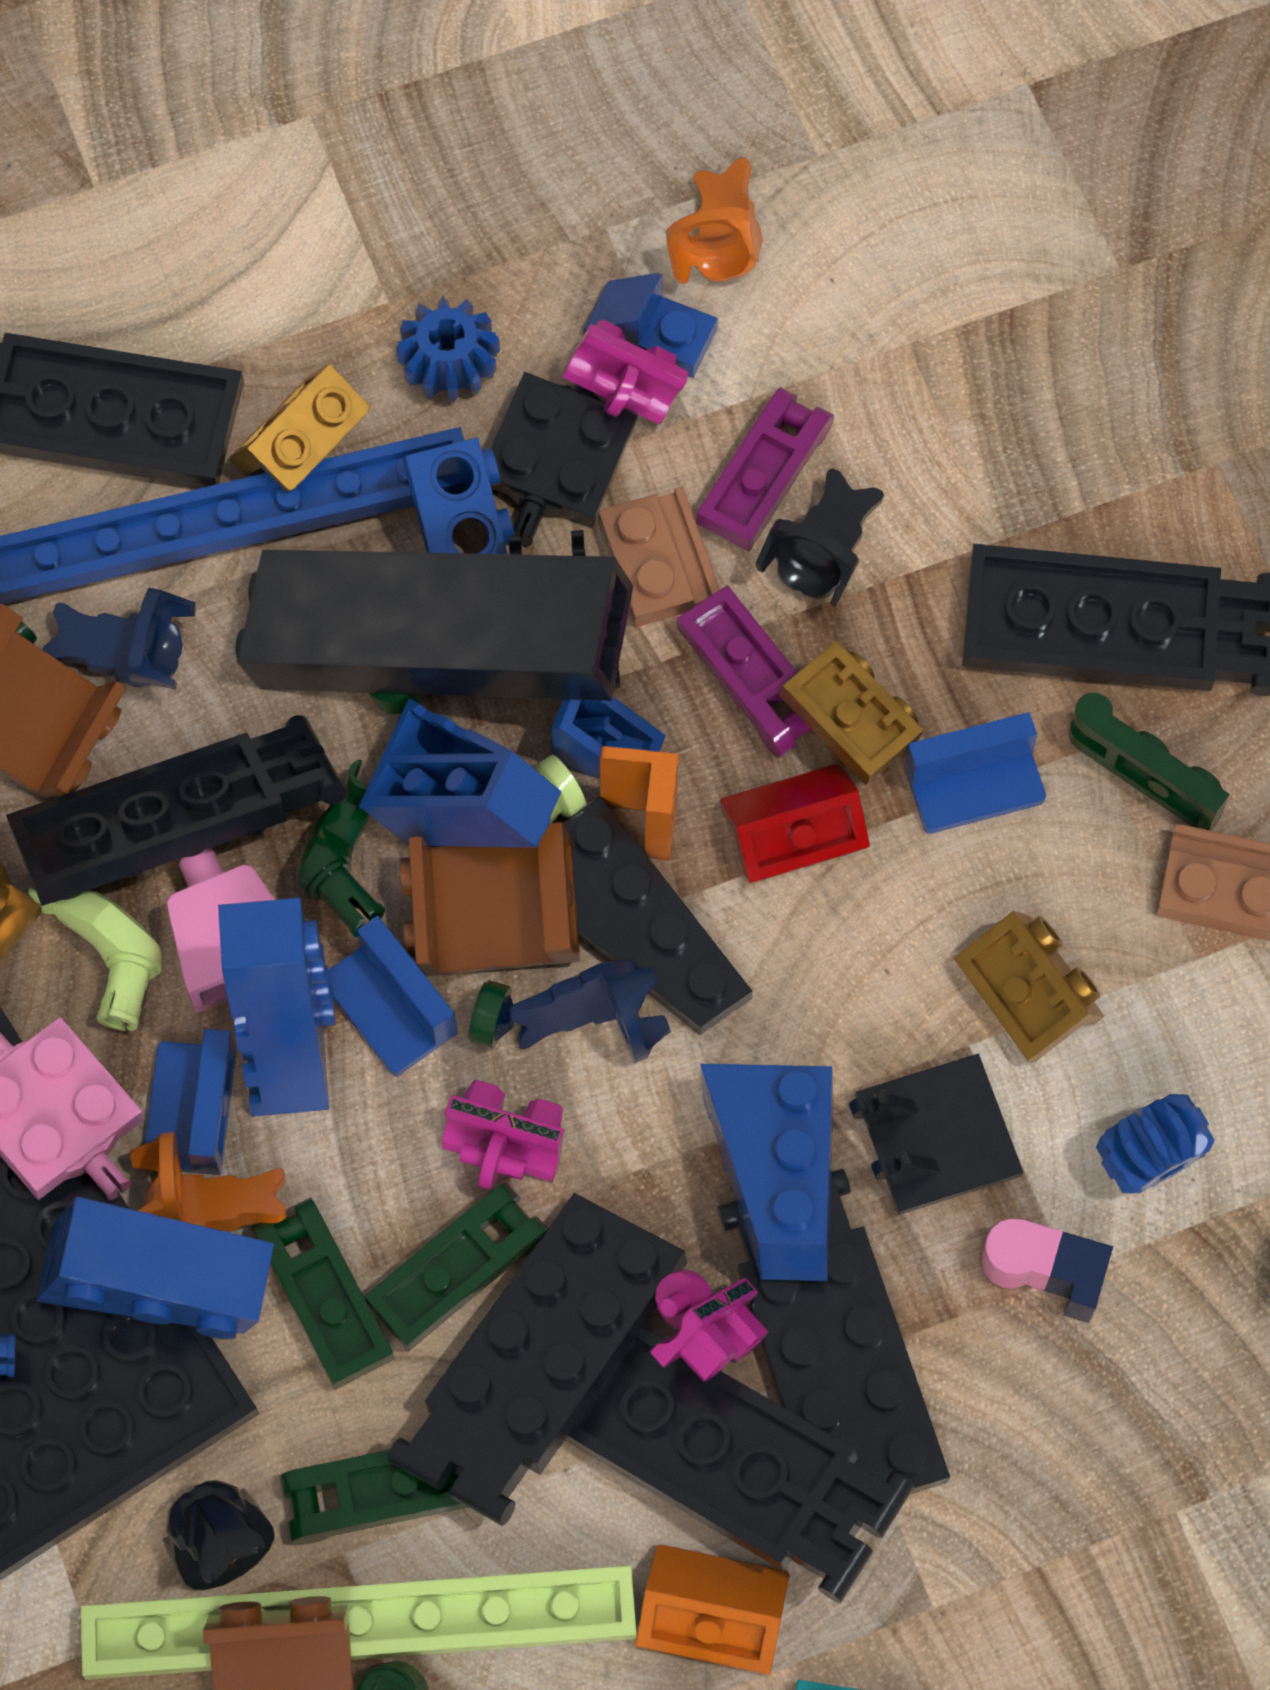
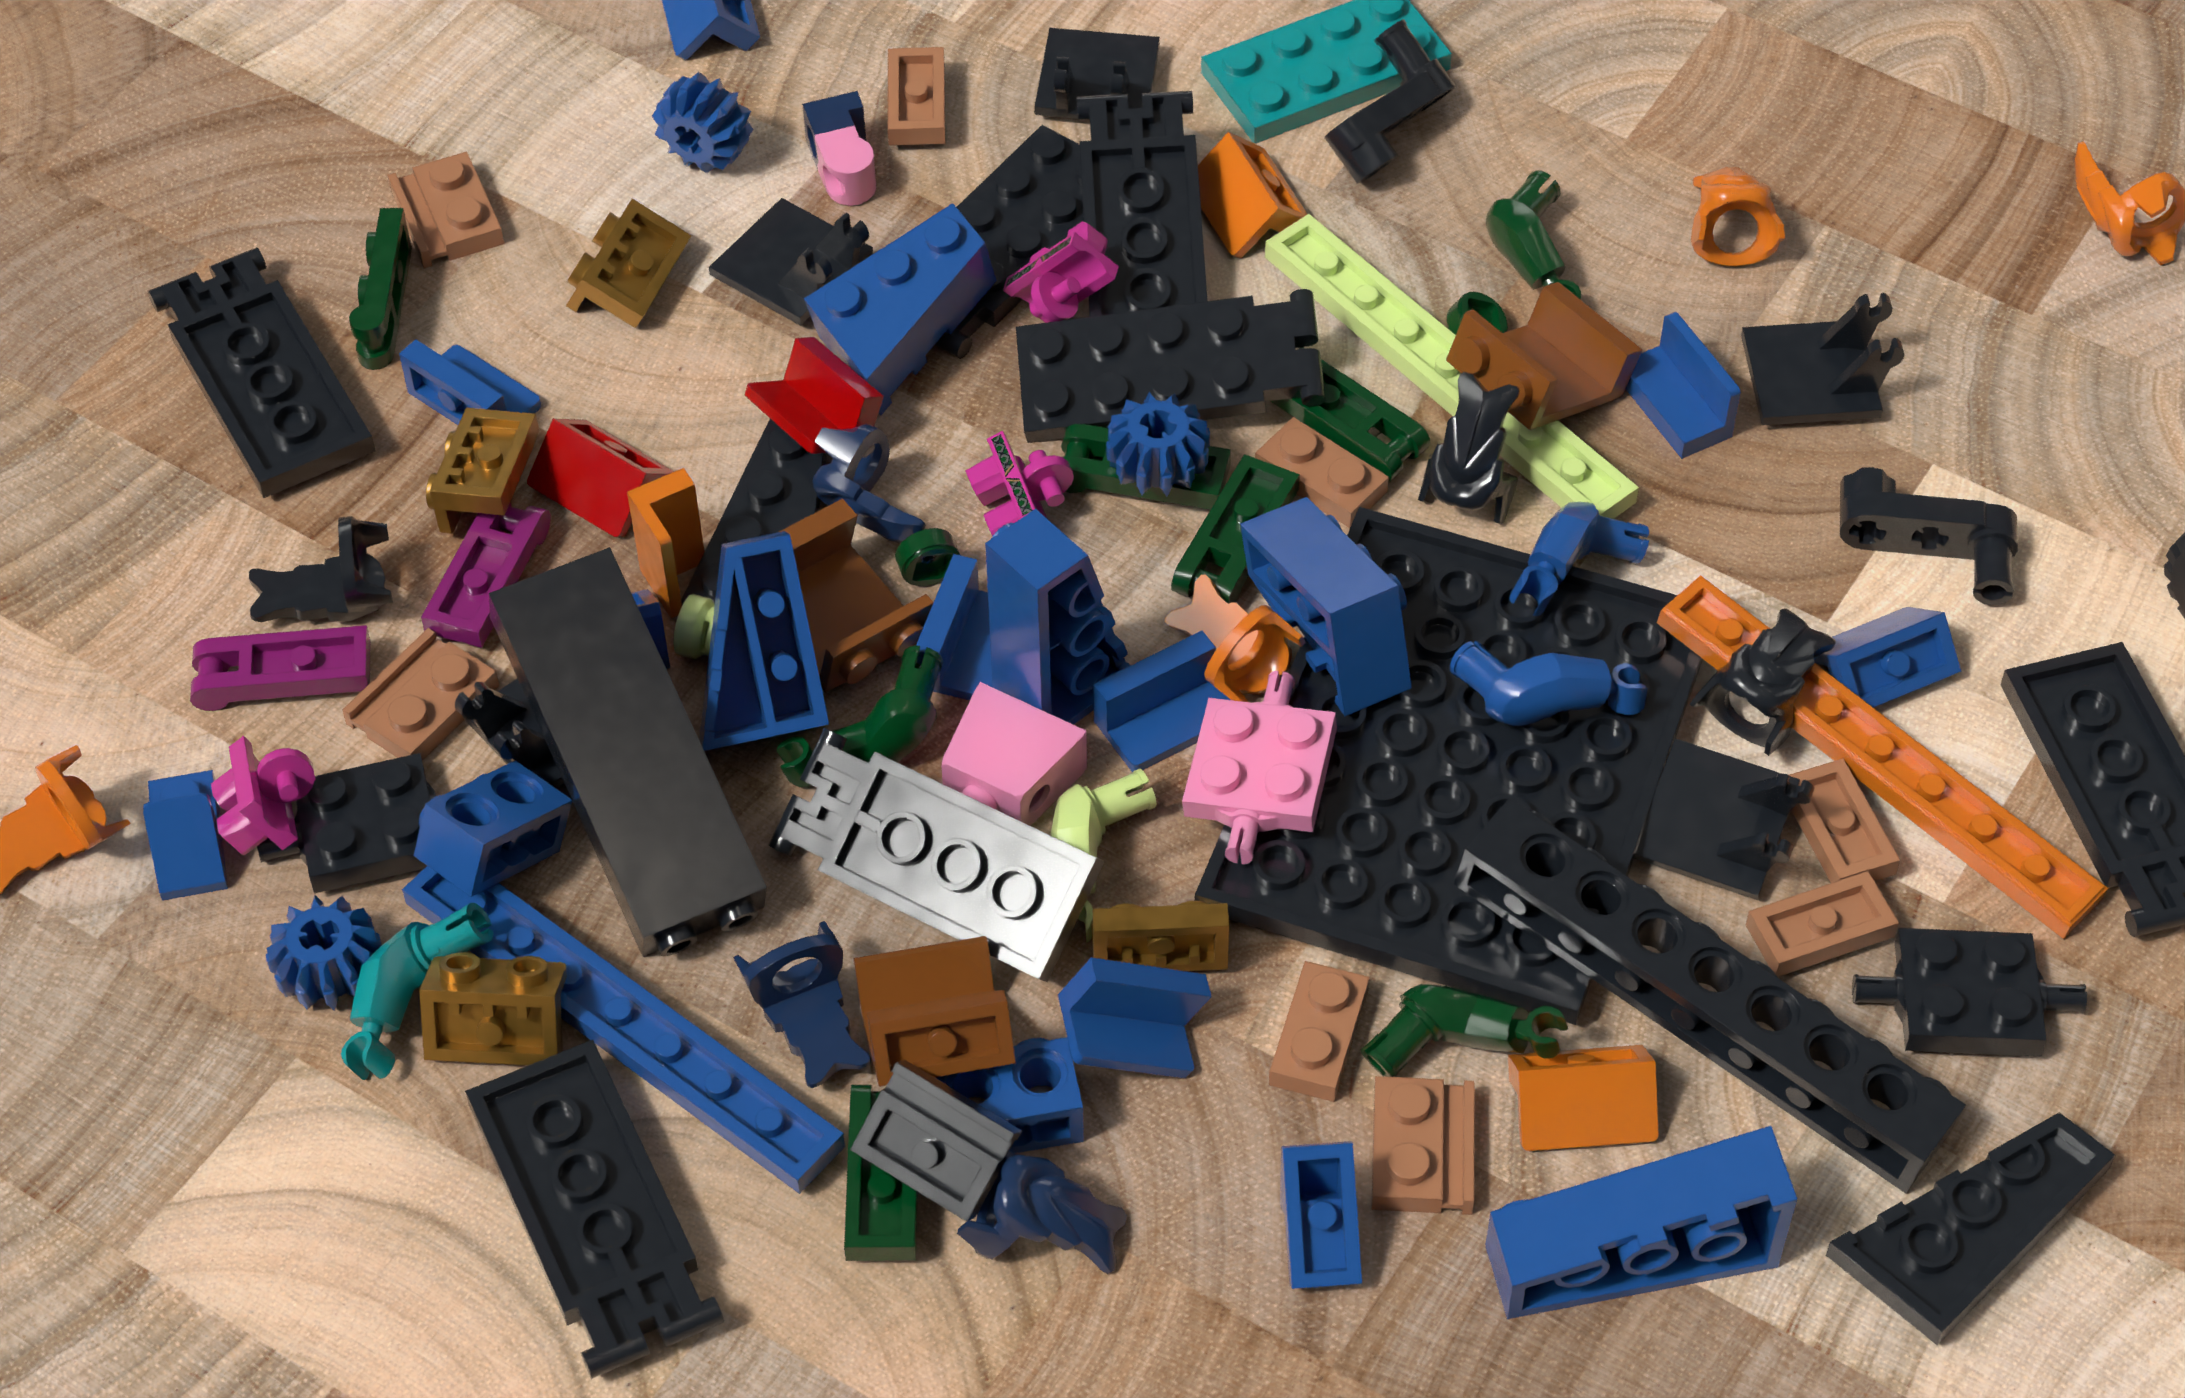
camera: 125 degrees left, 15 degrees down
(66, 1546) = (1571, 536): none -> blue arm
(338, 1423) = (1328, 473): none -> nougat plate
(382, 380) = (393, 975): none -> teal arm
(428, 1282) = (1158, 444): none -> blue gear
(728, 1021) = (816, 394): none -> red panel
(983, 1581) = (1094, 65): none -> black plate
(1075, 1384) = (916, 96): none -> nougat plate

